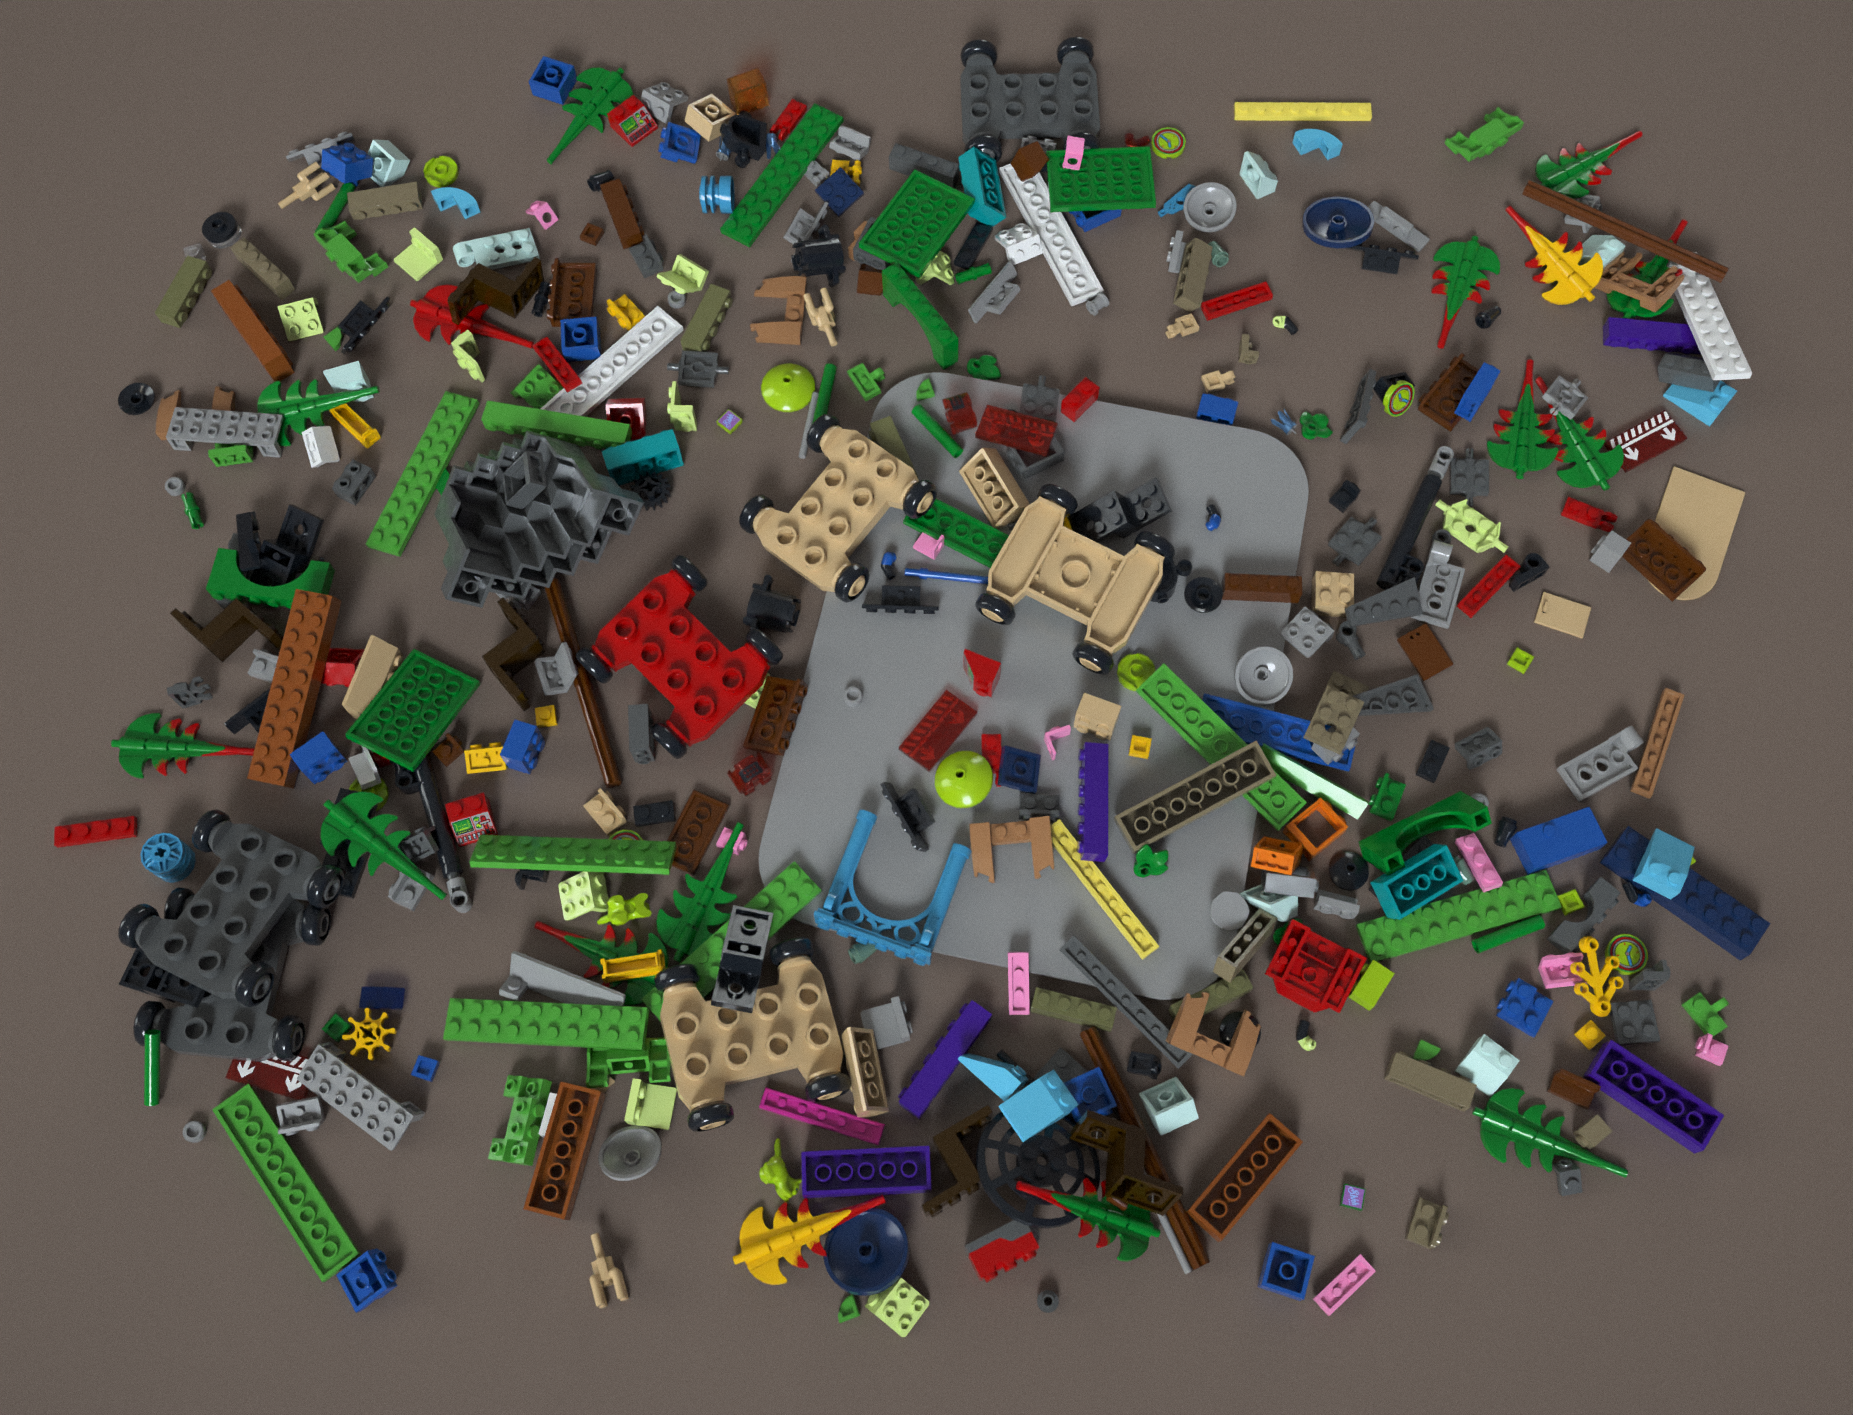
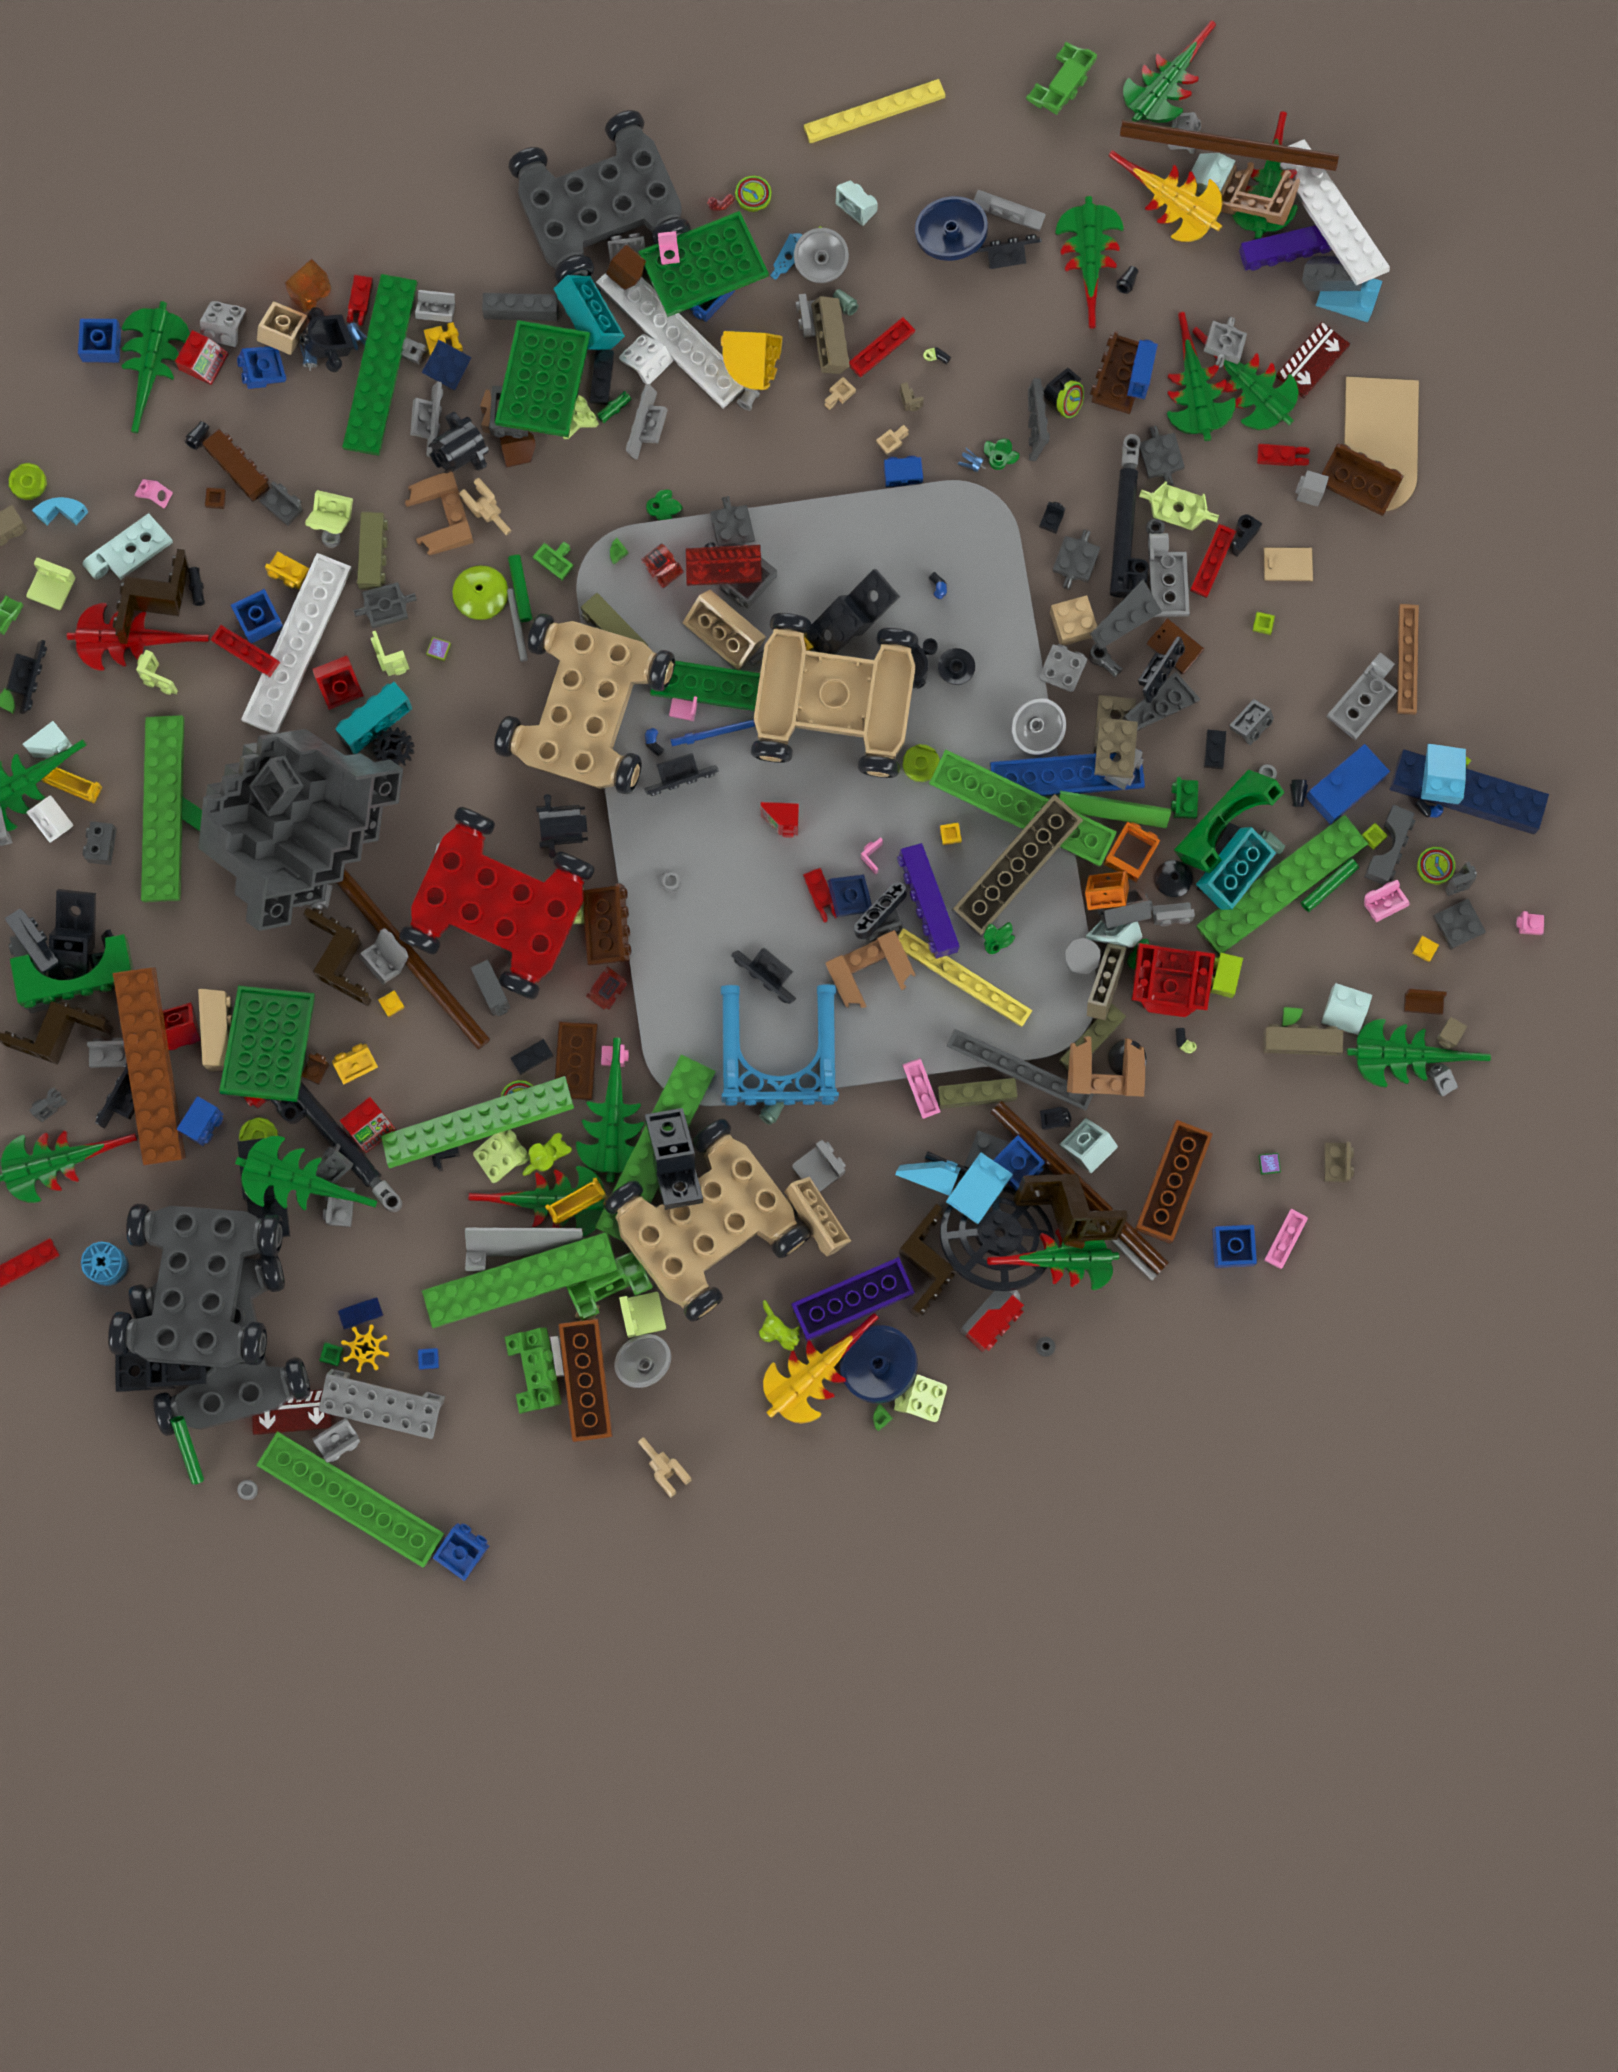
camera: 25 degrees left, 10 degrees up
(365, 769) = (247, 1115): white panel -> none
(522, 747) = (385, 1041): blue brick -> none
(537, 387) = (235, 682): bright green bracket -> none
(556, 425) = (275, 716): bright green brick -> none
(571, 291) = (224, 569): reddish brown bracket -> none
(605, 812) = (487, 1072): tan bracket -> none
(717, 194) = (326, 412): dark azure wheel -> none
(822, 1116) = (794, 1267): dark pink tile -> none
(900, 289) = (552, 453): green arch -> none
(937, 431) = (646, 589): green piece -> none
(937, 731) = (761, 885): clear red tile -> none
(944, 1060) = (882, 1178): dark purple brick -> none
(969, 788) = (815, 924): lime dish -> none
(1023, 803) = (877, 908): none -> black beam
(1079, 399) = (770, 509): red brick -> none
(1097, 716) = (902, 821): tan brick -> none
(1114, 266) = (751, 357): none -> yellow brick
(1262, 587) = (1007, 640): reddish brown brick -> none
(1311, 139) = (893, 142): medium azure brick -> none
(1403, 665) = (1159, 668): none -> black bracket
(1478, 862) = (1284, 829): bright pink plate -> none
(1523, 1007) = (1362, 945): blue plate -> none
(1596, 978) = (1416, 898): yellow plant -> none
(1653, 1096) = (1492, 983): dark purple brick -> none
(1706, 1014) = (1517, 894): bright green plate -> none

